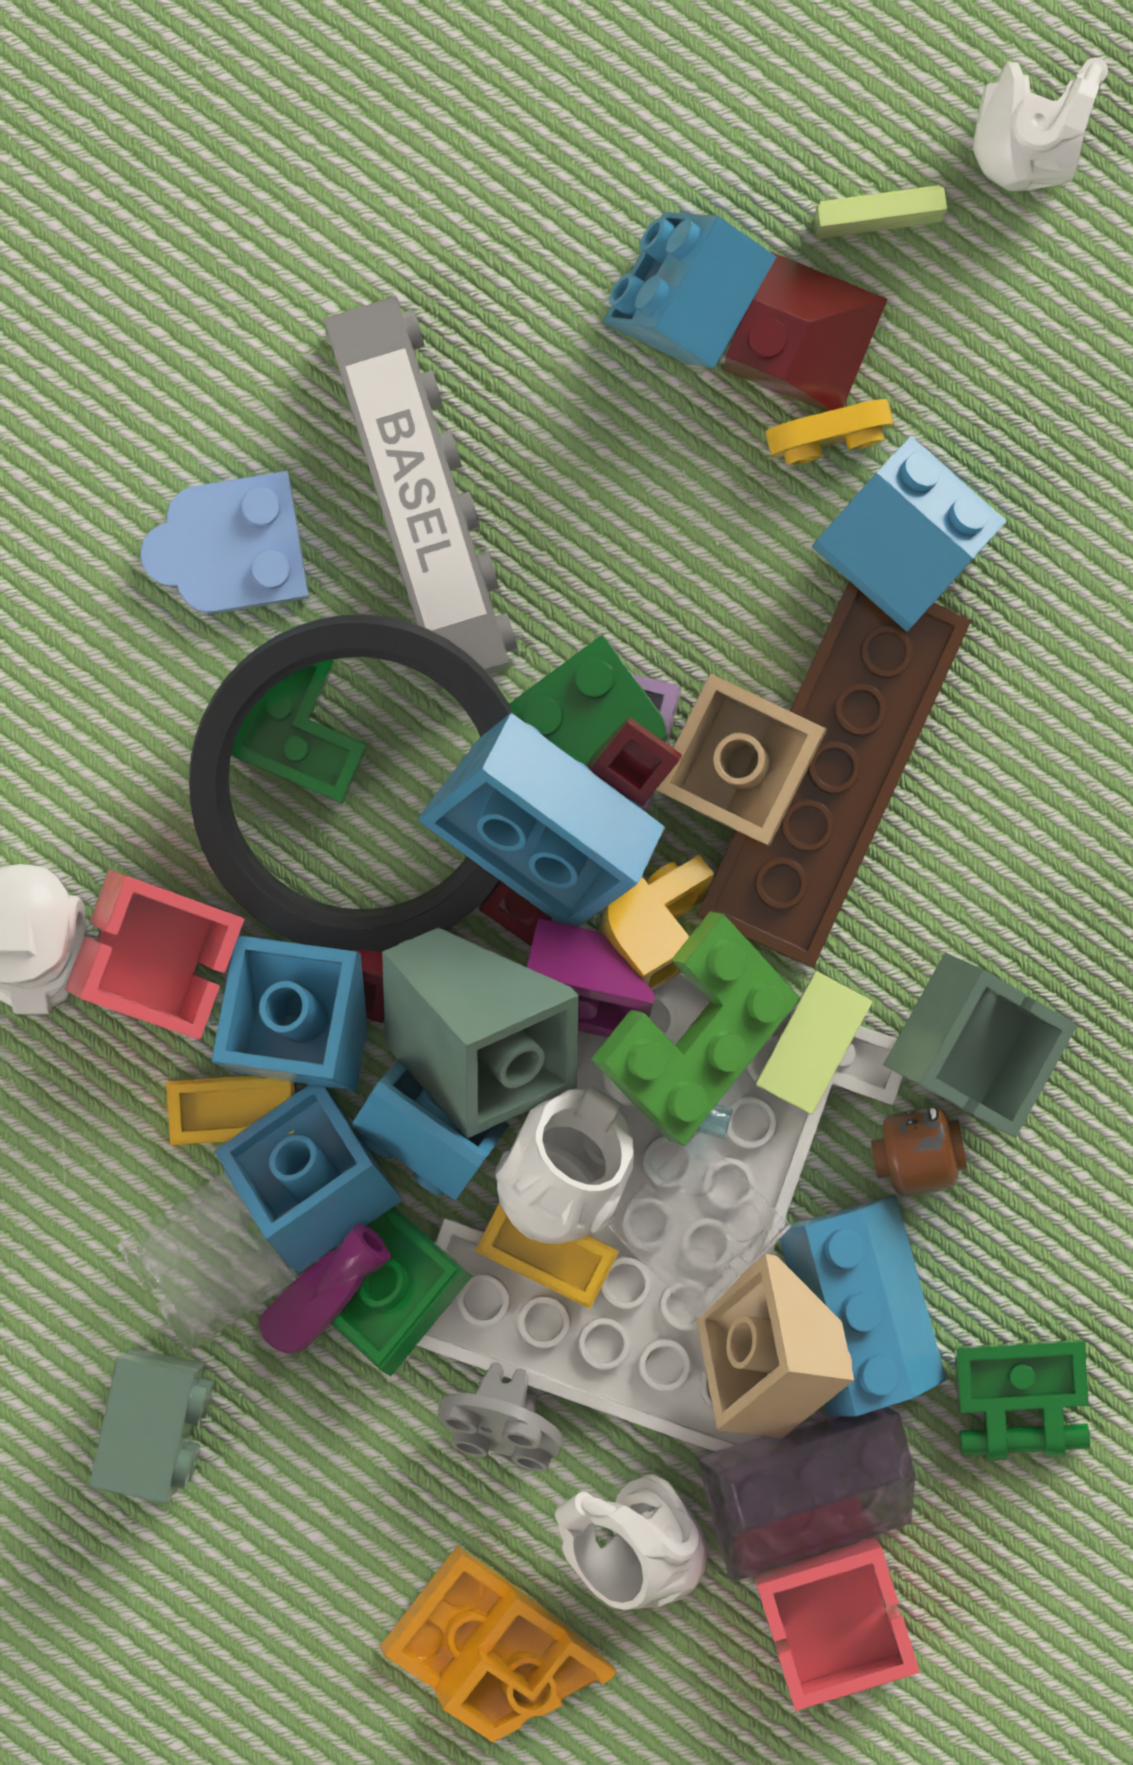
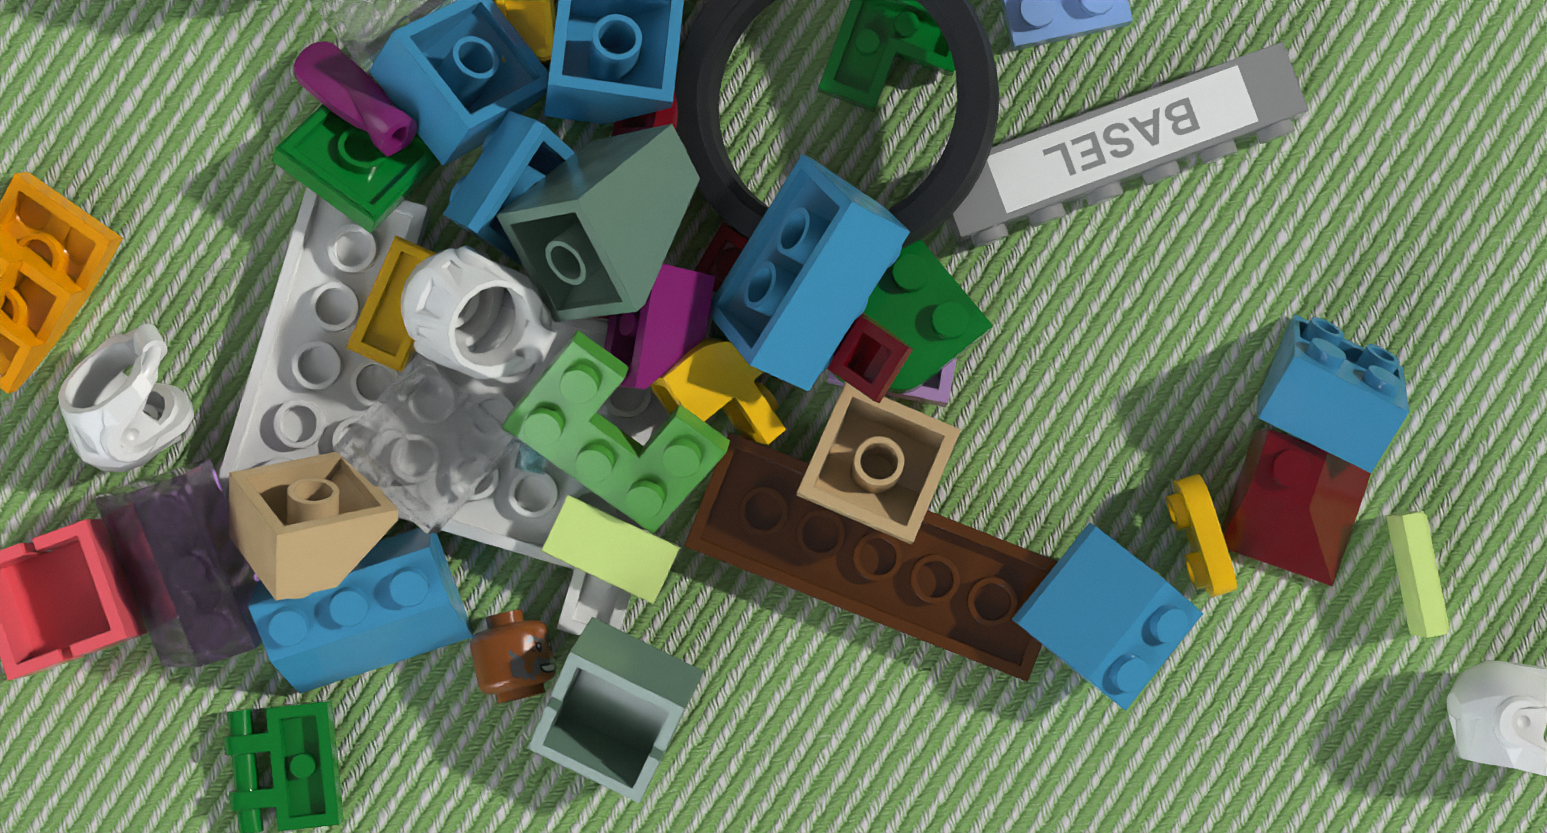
camera: 90 degrees right, 0 degrees up
(502, 1421) = (238, 270): light grey plate -> none

